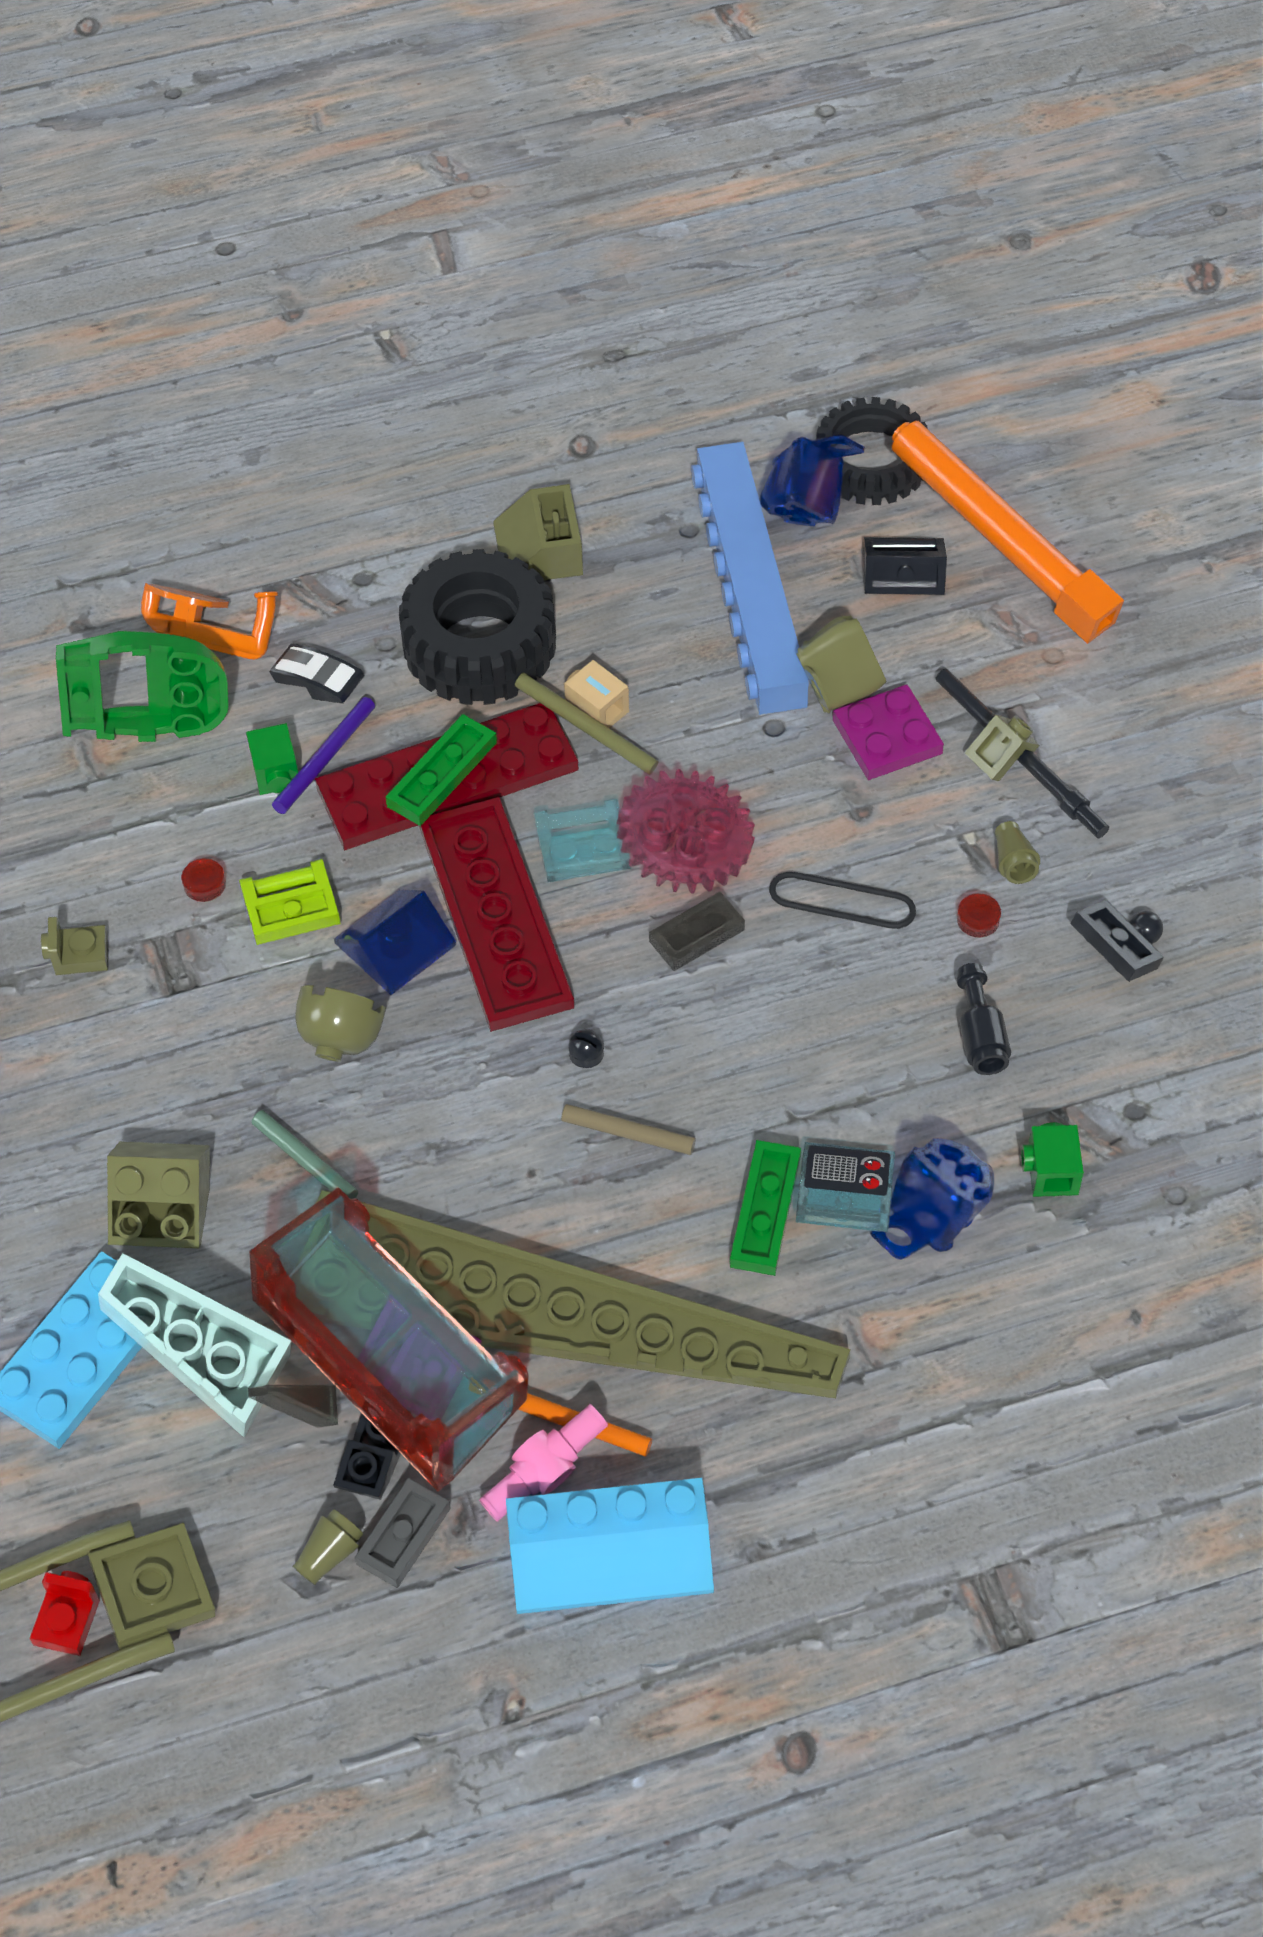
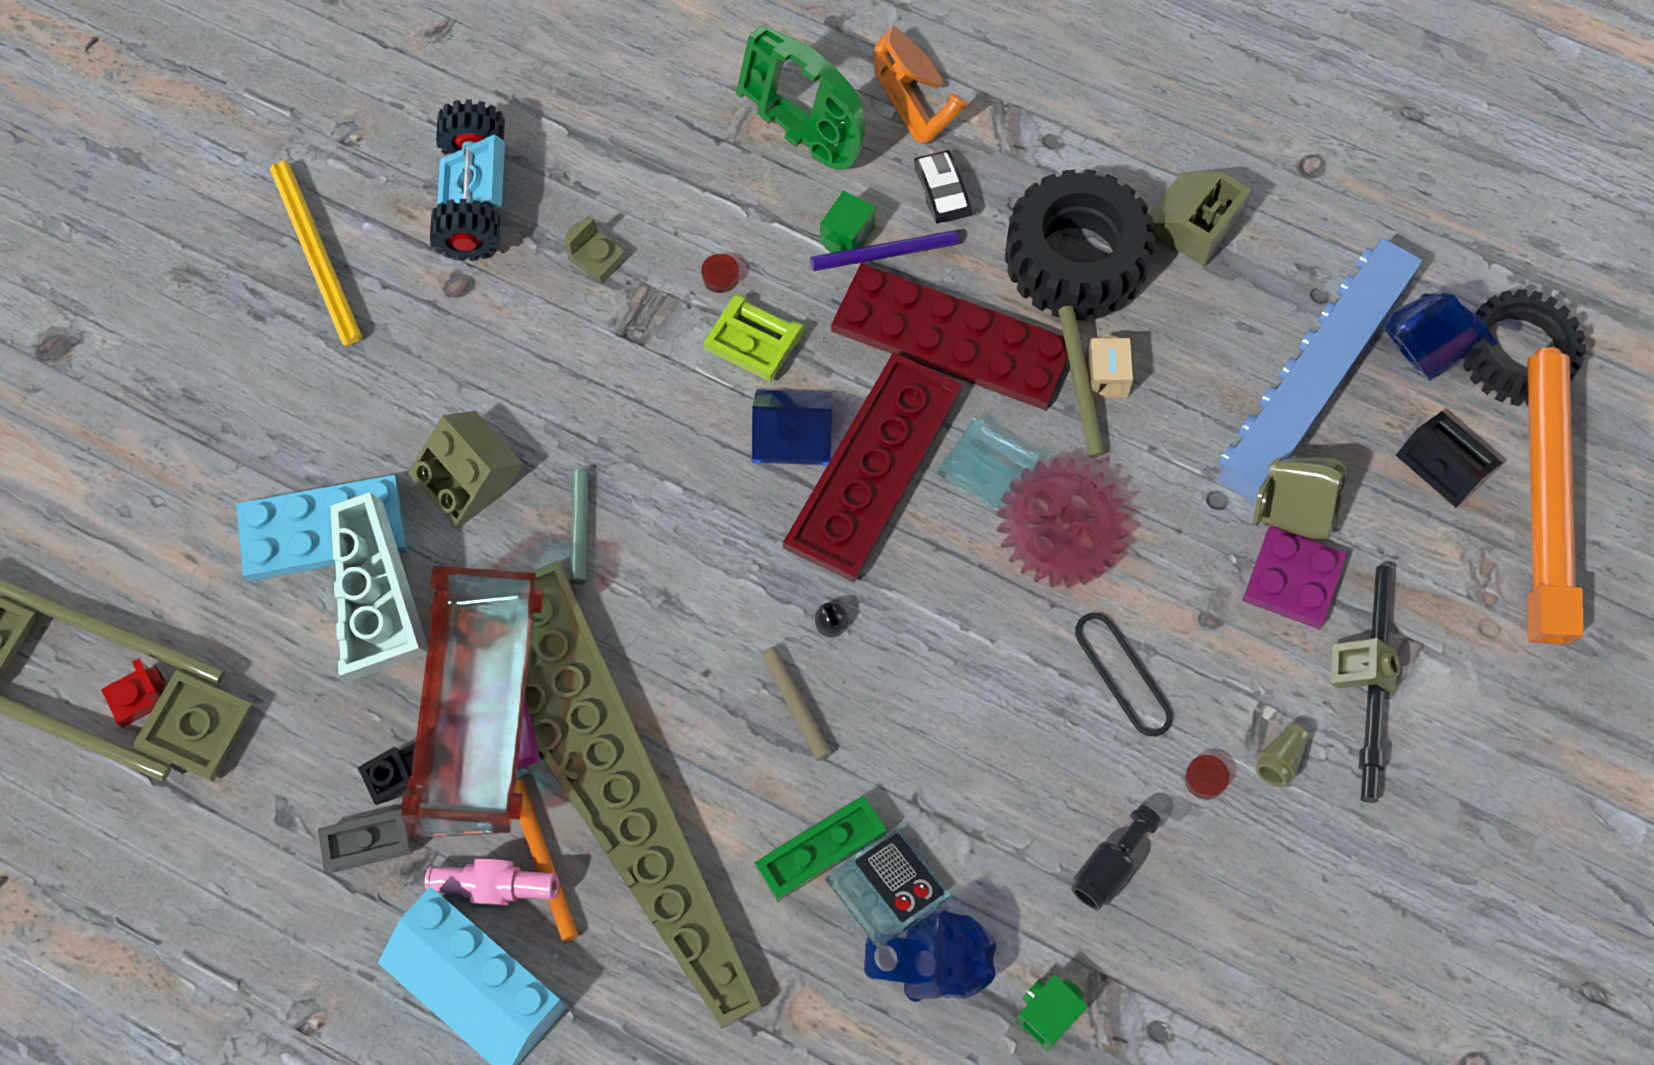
camera: 45 degrees right, 10 degrees up
(304, 1402) = (396, 695): clear smoke piece -> none
(328, 1546) = (316, 804): olive cone -> none
(337, 1022) = (686, 452): olive cylinder -> none
(441, 769) = (940, 330): green plate -> none
(696, 931) = (992, 604): clear smoke plate -> none
(1122, 942) = (1285, 895): black plate -> none

